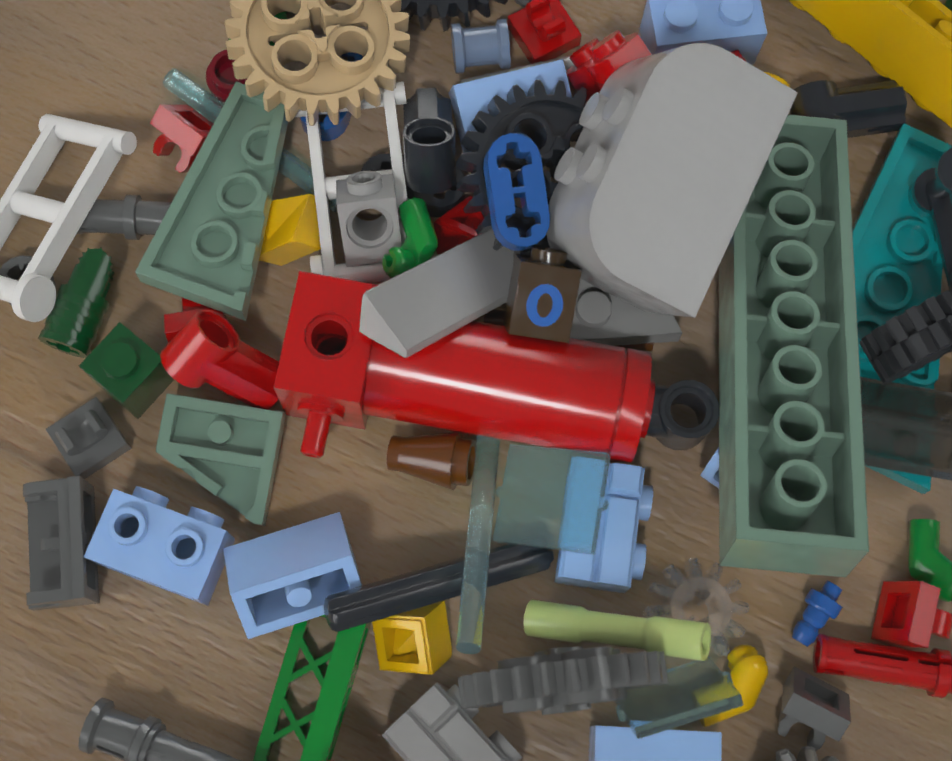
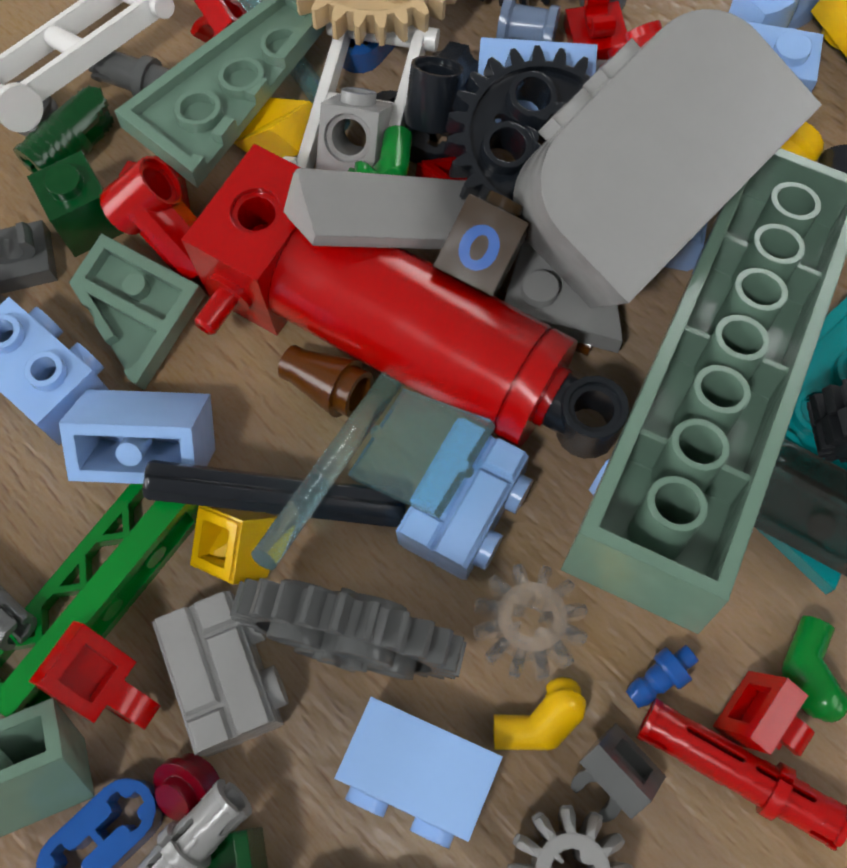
camera: 30 degrees right, 5 degrees down
(530, 190) = (481, 134): blue beam -> none
(577, 624) = (482, 629): yellowish green piece -> none
(690, 695) = (470, 703): clear light blue piece -> none

